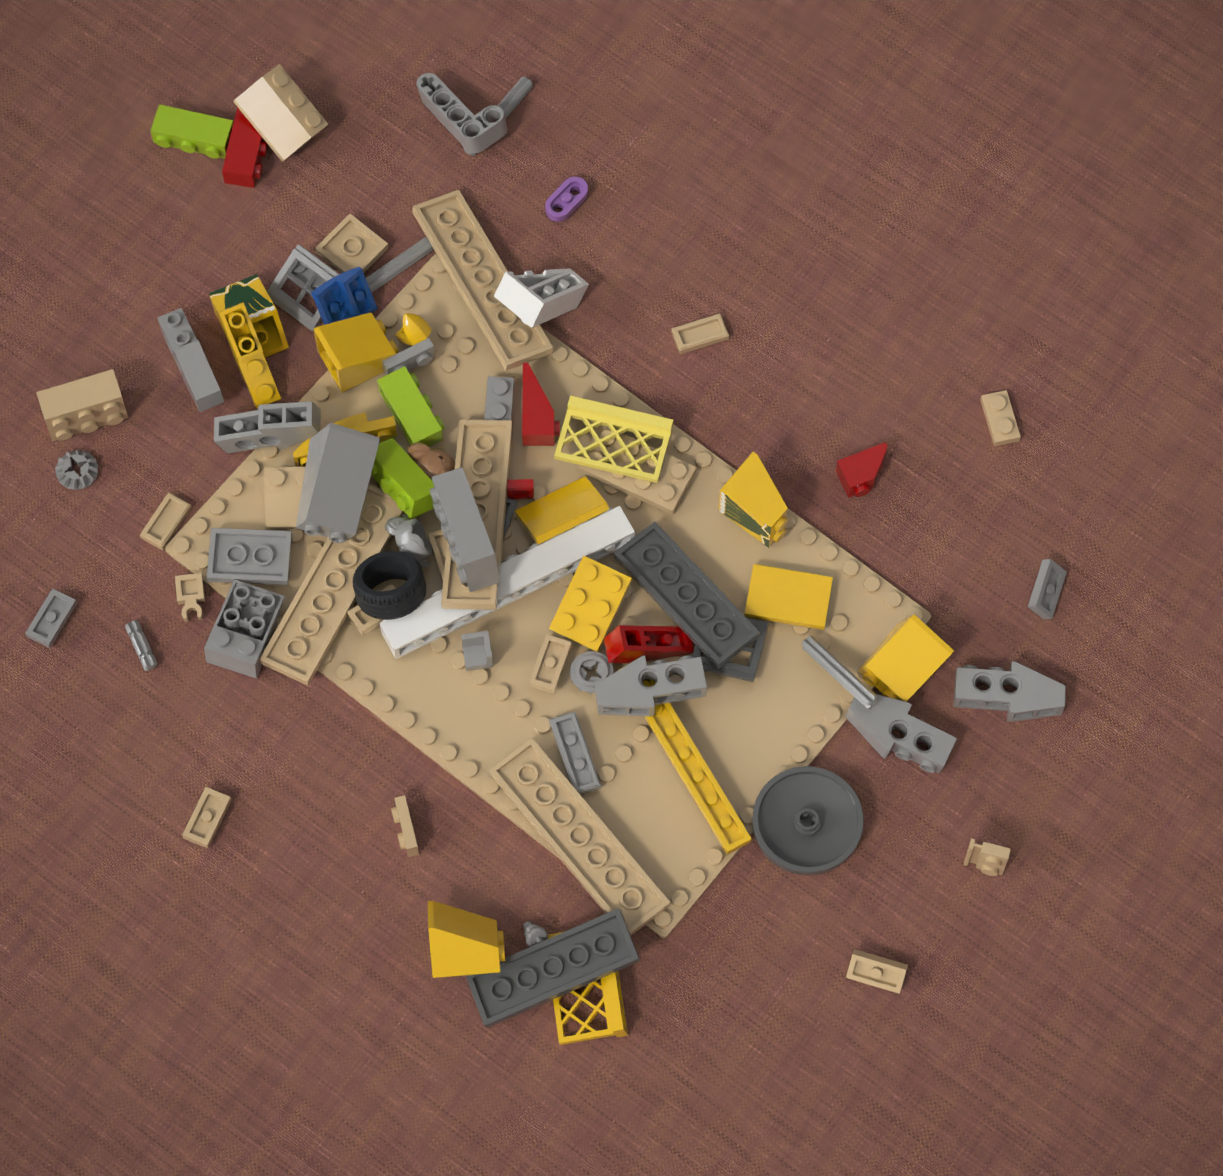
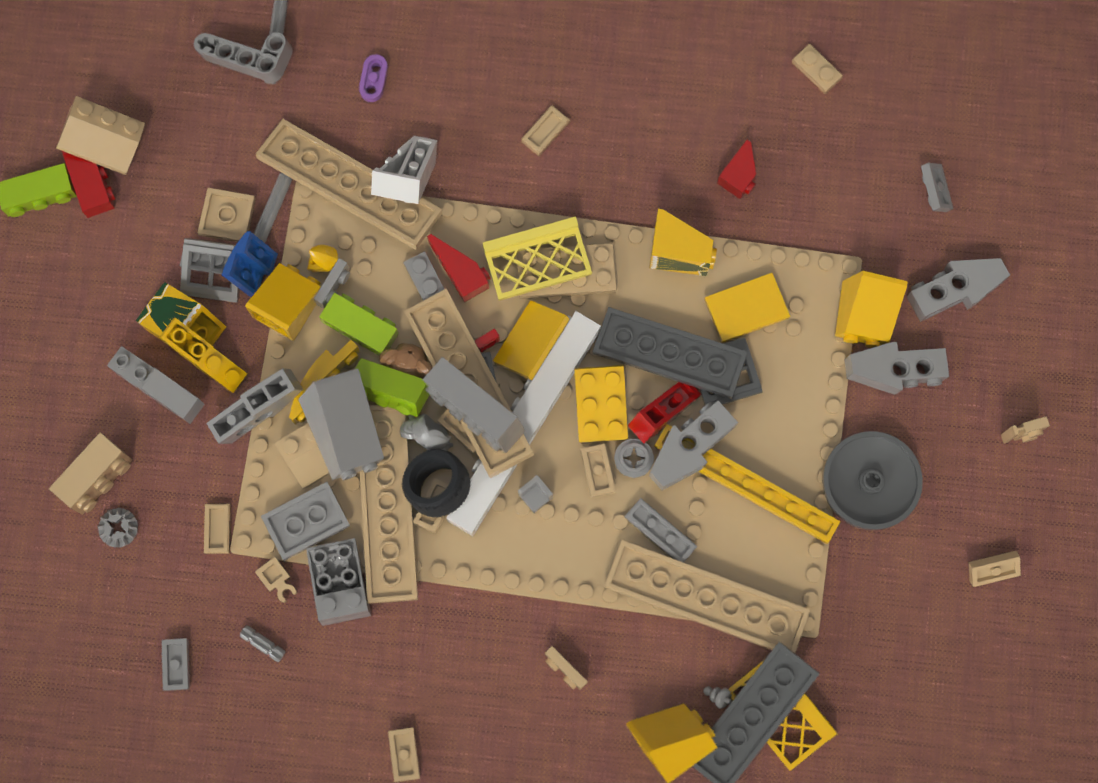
camera: 30 degrees left, 10 degrees up
(840, 672) = (827, 348): light grey axle -> none

